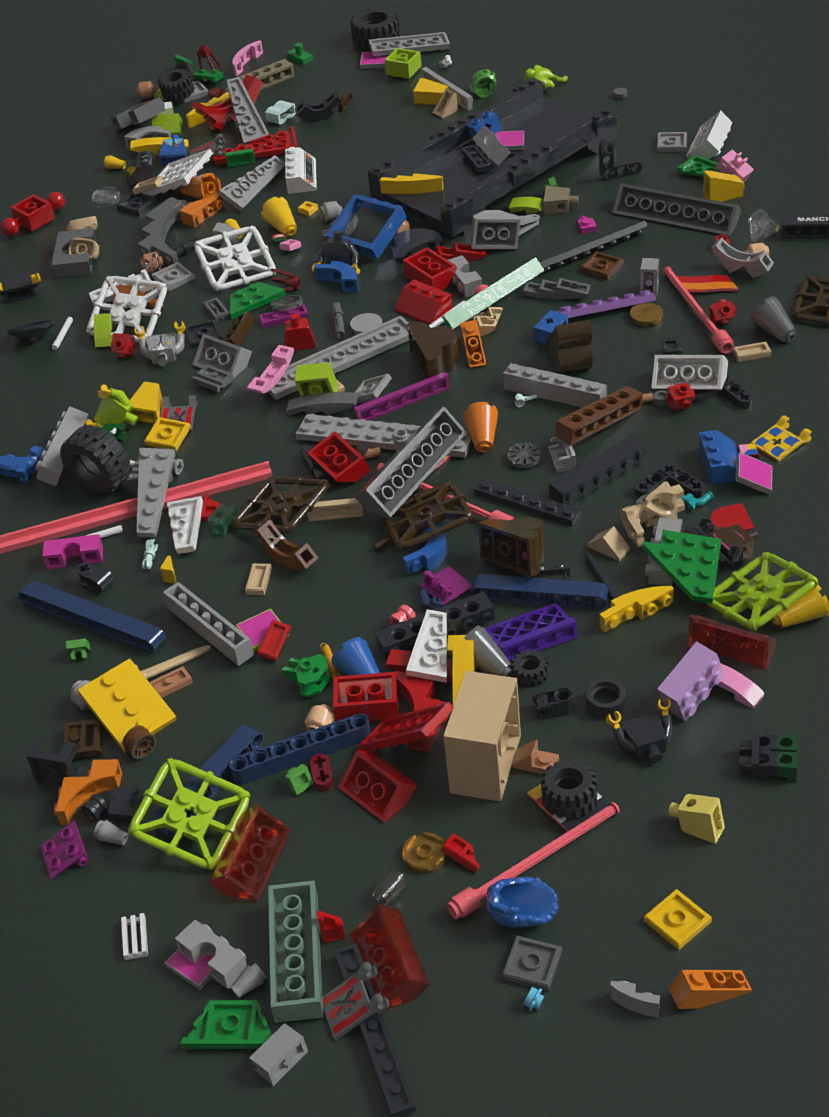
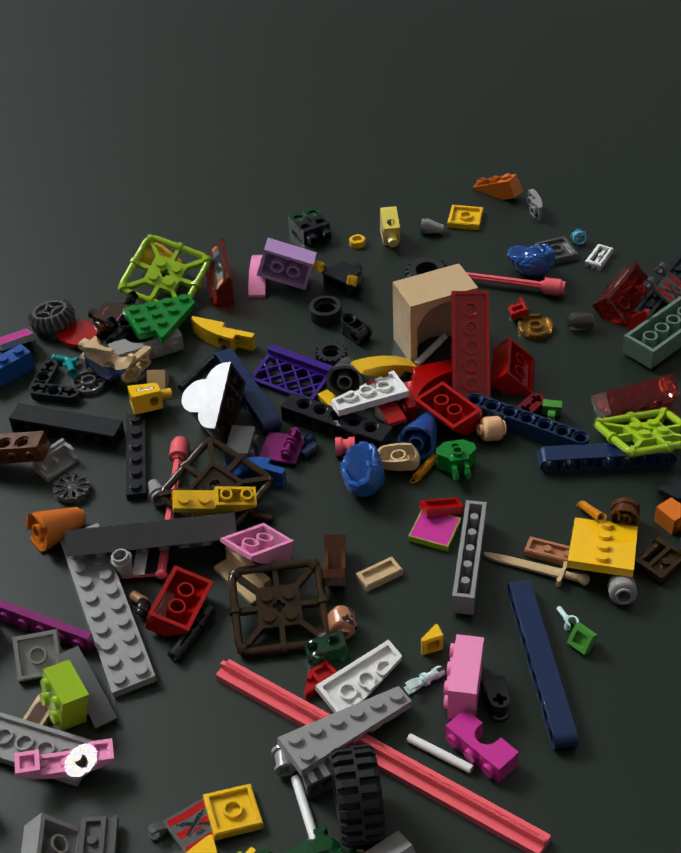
camera: 130 degrees left, 0 degrees up
(100, 655) = (567, 618): none -> light aqua hand
(119, 559) = (463, 675): none -> bright pink brick
(173, 729) = (592, 511): none -> light orange piece
(234, 532) = (342, 619): none -> nougat head
(261, 374) = (81, 760): none -> piece
(336, 506) = (260, 544): none -> bright pink slope
(347, 632) = (399, 457): none -> tan piece
(351, 604) = (362, 469): none -> blue hair
(406, 502) = (217, 501): none -> yellow slope
(465, 553) = (242, 440): none -> dark grey brick
(471, 494) = (154, 487): none -> light grey cone
(489, 1011) = (589, 261): none -> white tile
(584, 521) = (147, 397): none -> yellow torso
(680, 866) = (431, 227): none -> light grey cone
(714, 789) = (357, 241): none -> yellow tile
(767, 504) = (51, 316): none -> dark grey gear

